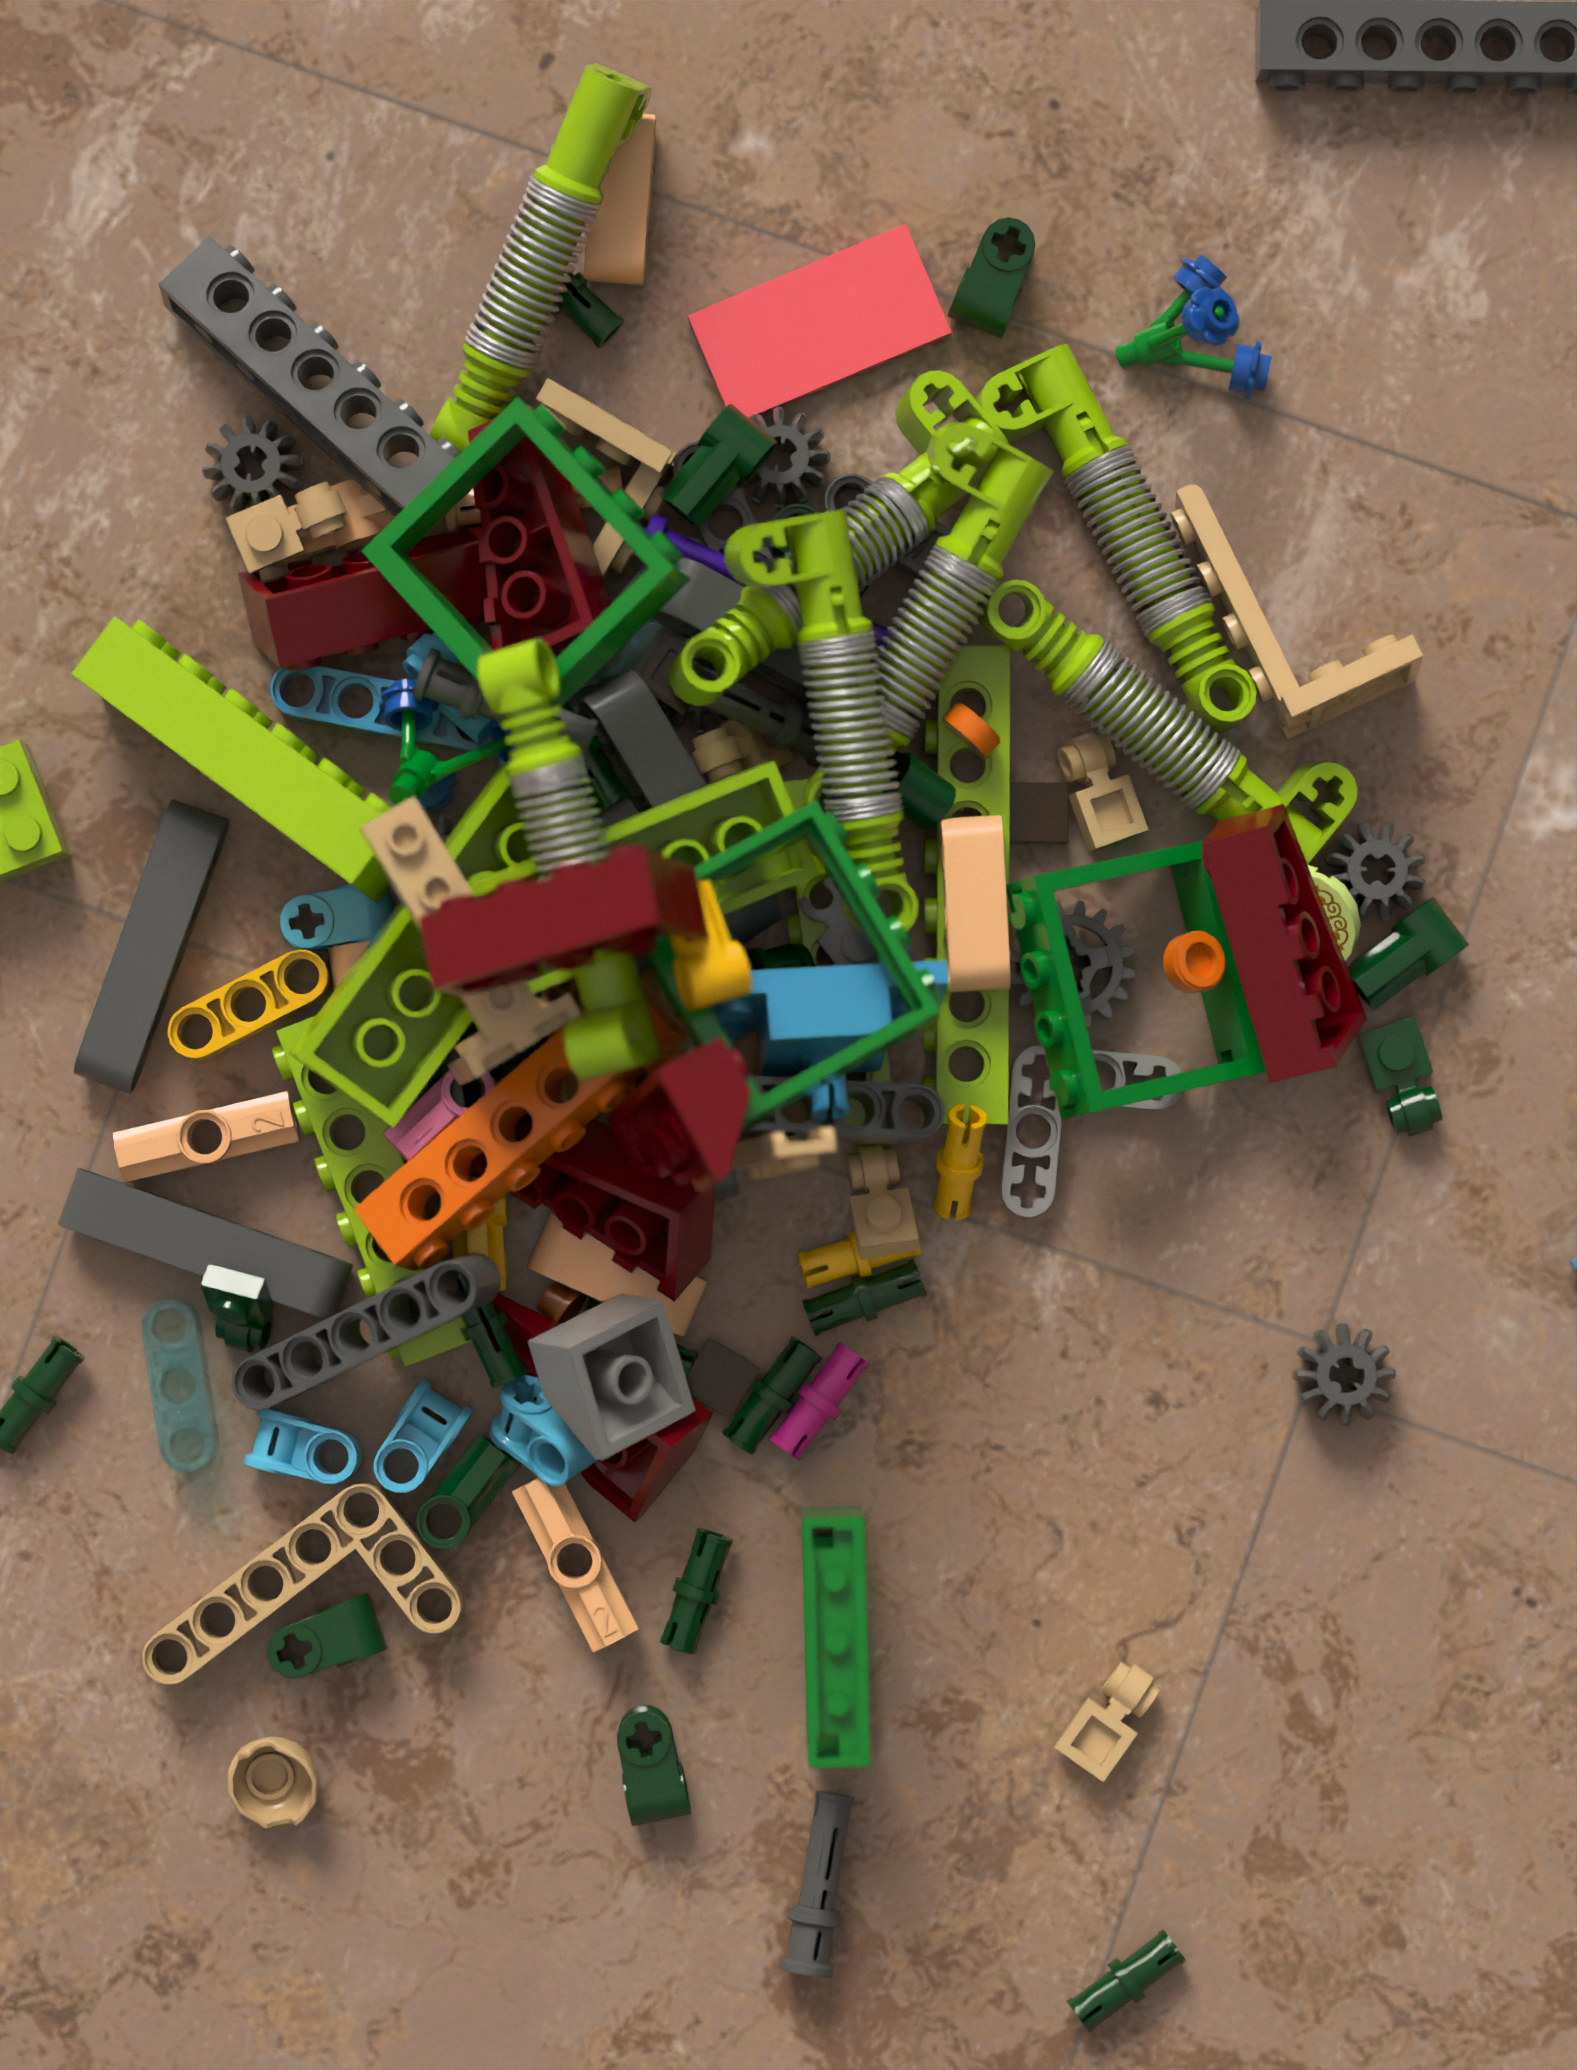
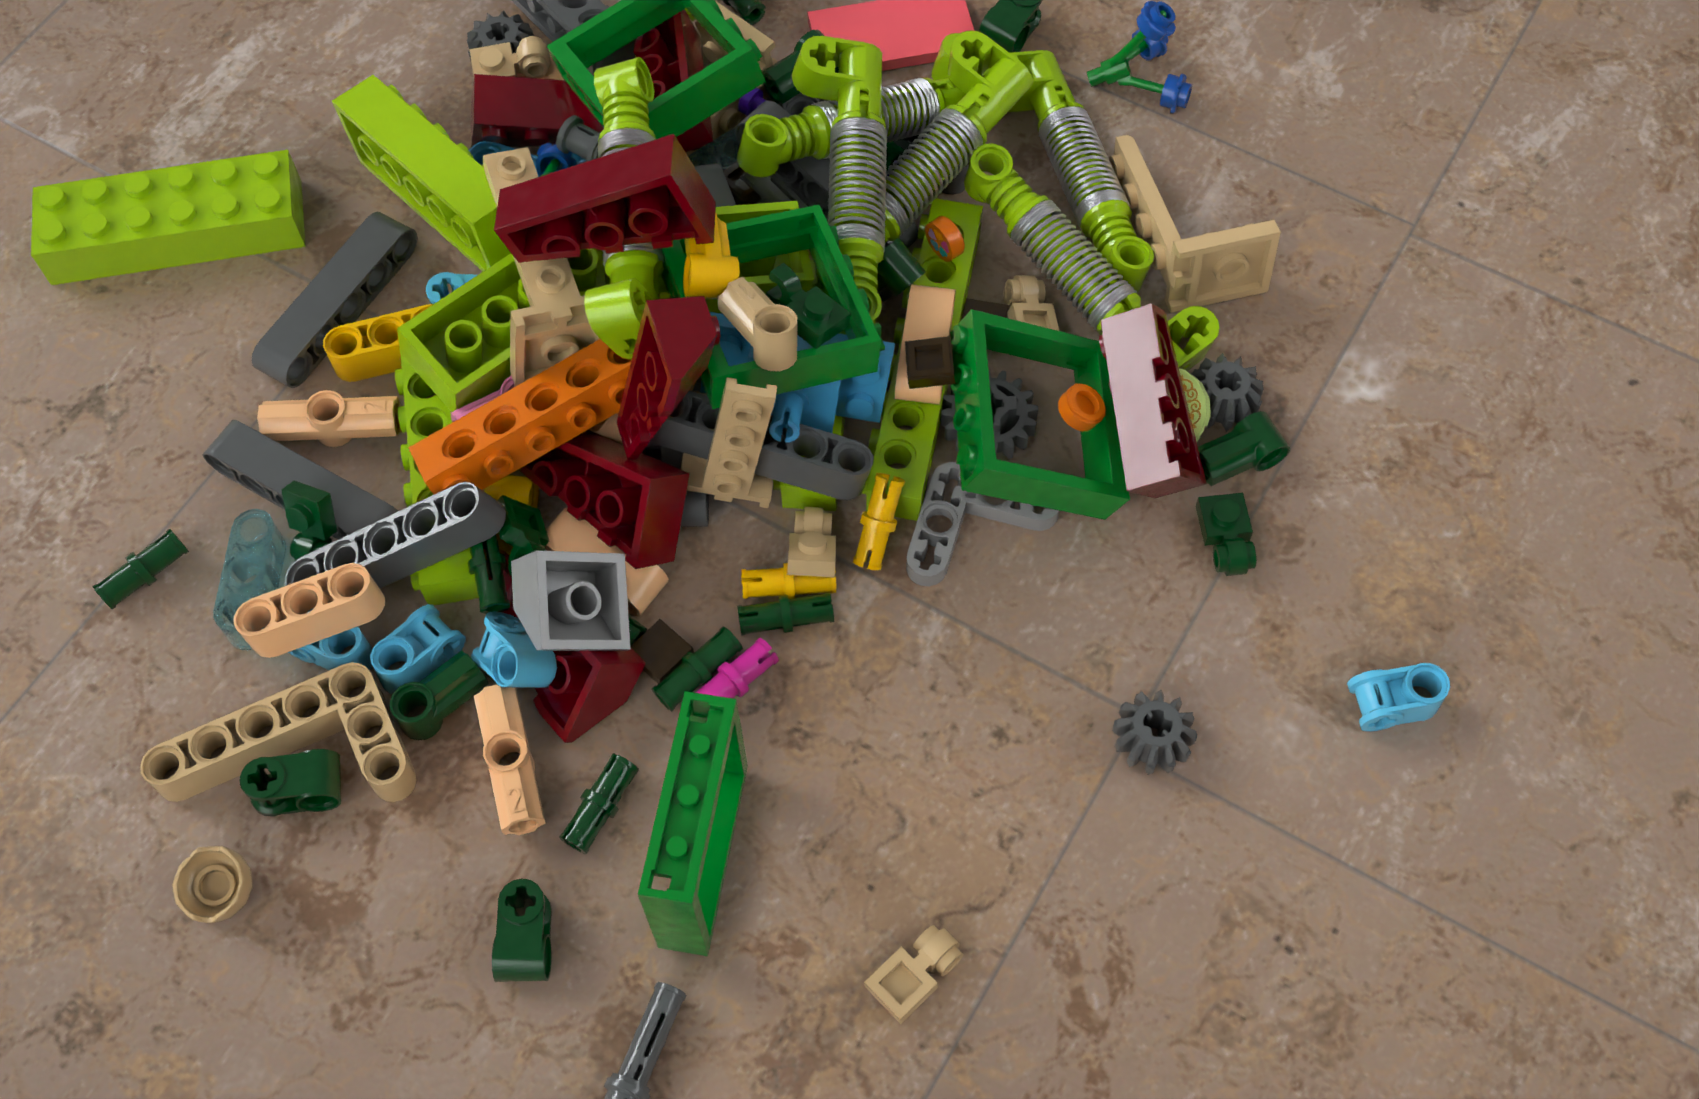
camera: 15 degrees right, 25 degrees down
(260, 1444) = (286, 610): none -> light nougat beam
(522, 1278) = (522, 529): none -> dark green plate
(788, 1032) = (765, 325): none -> tan piece
(848, 998) = (817, 313): none -> dark green plate
(991, 956) = (930, 362): none -> dark brown tile

